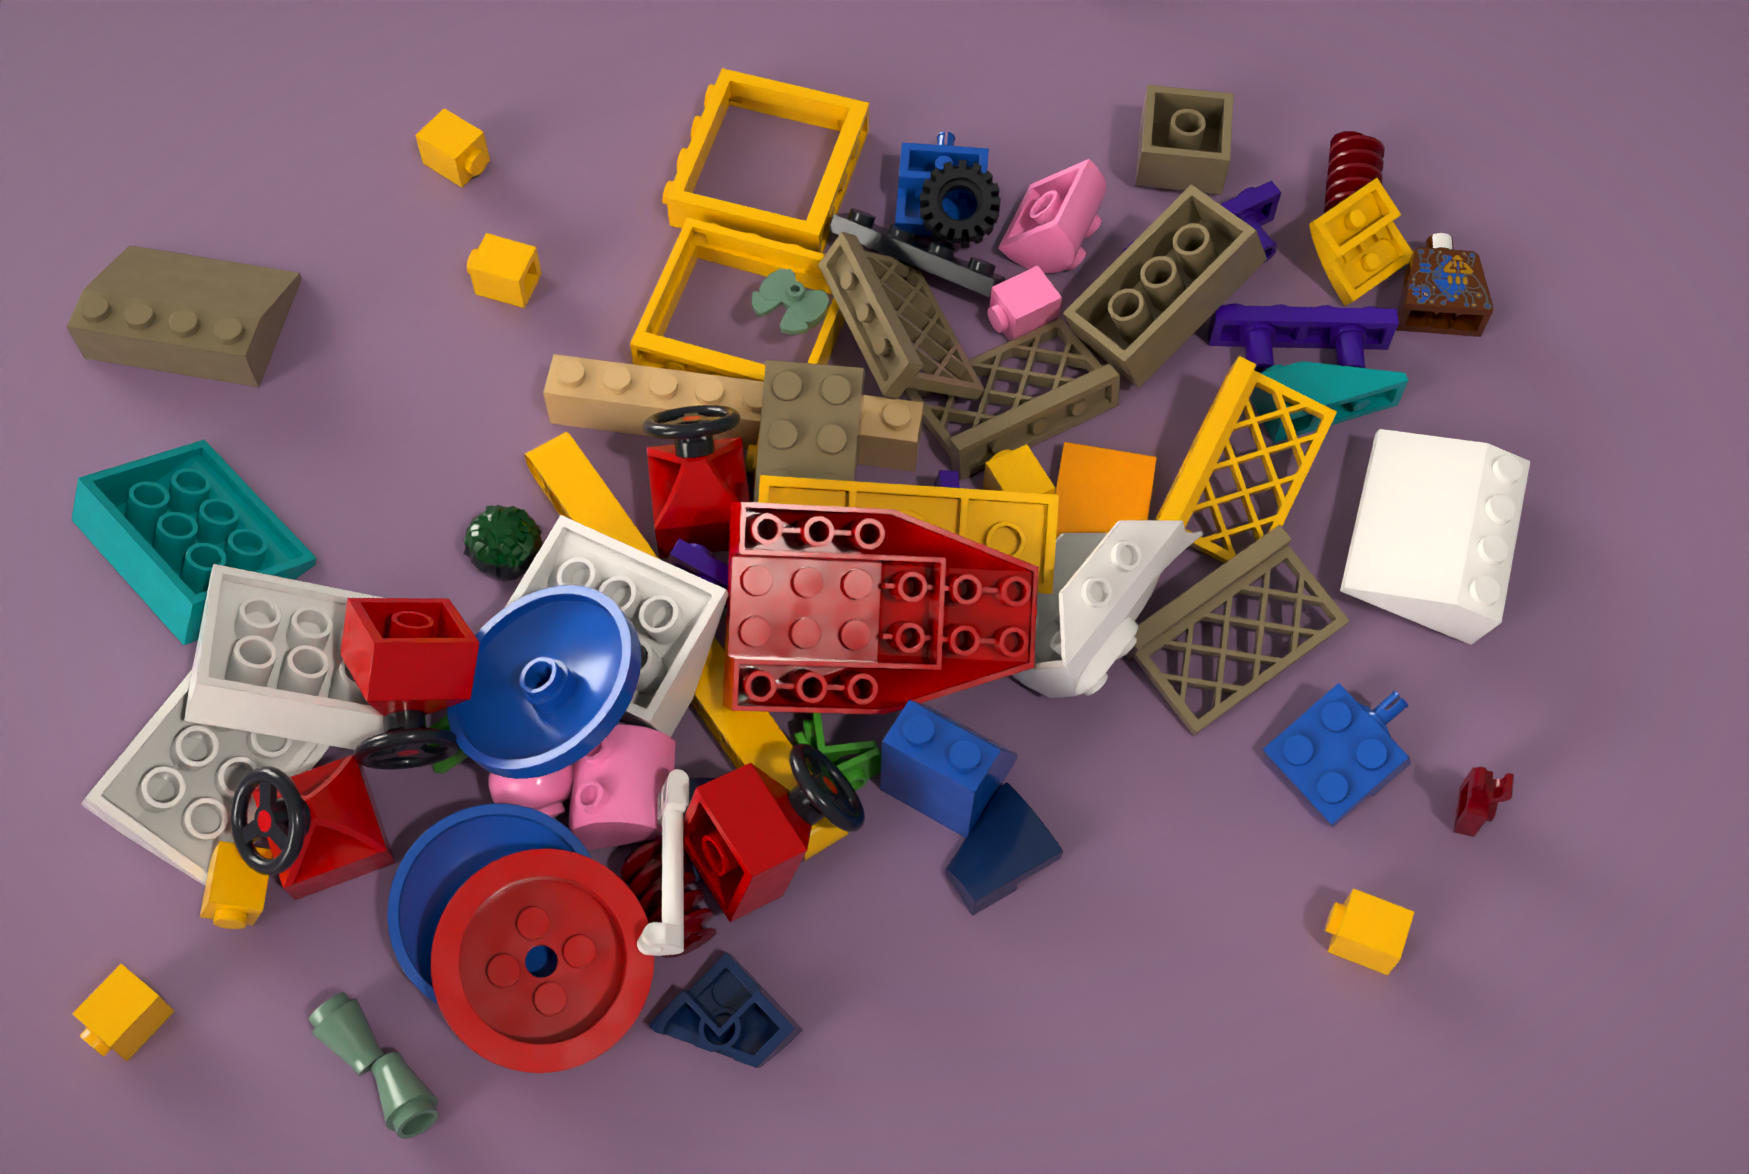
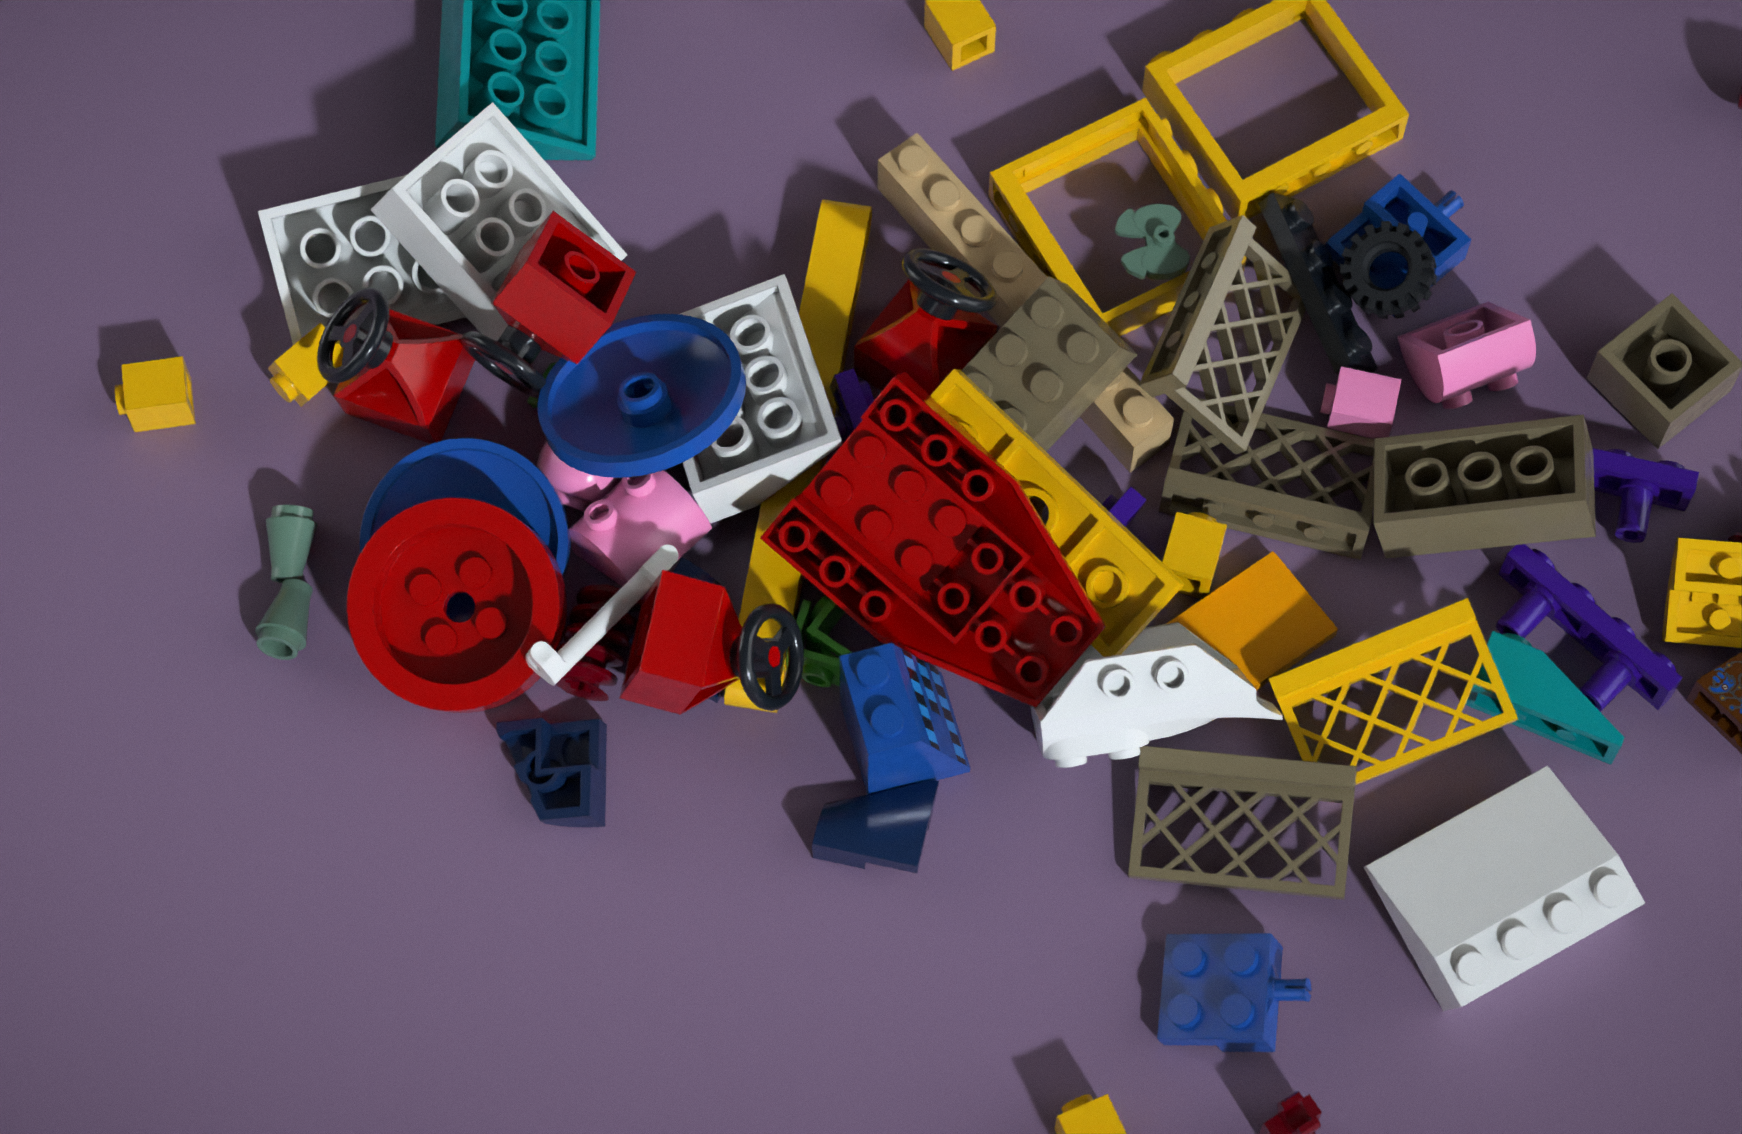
camera: 45 degrees right, 5 degrees up
(502, 542) = (738, 257): dark green piece -> none

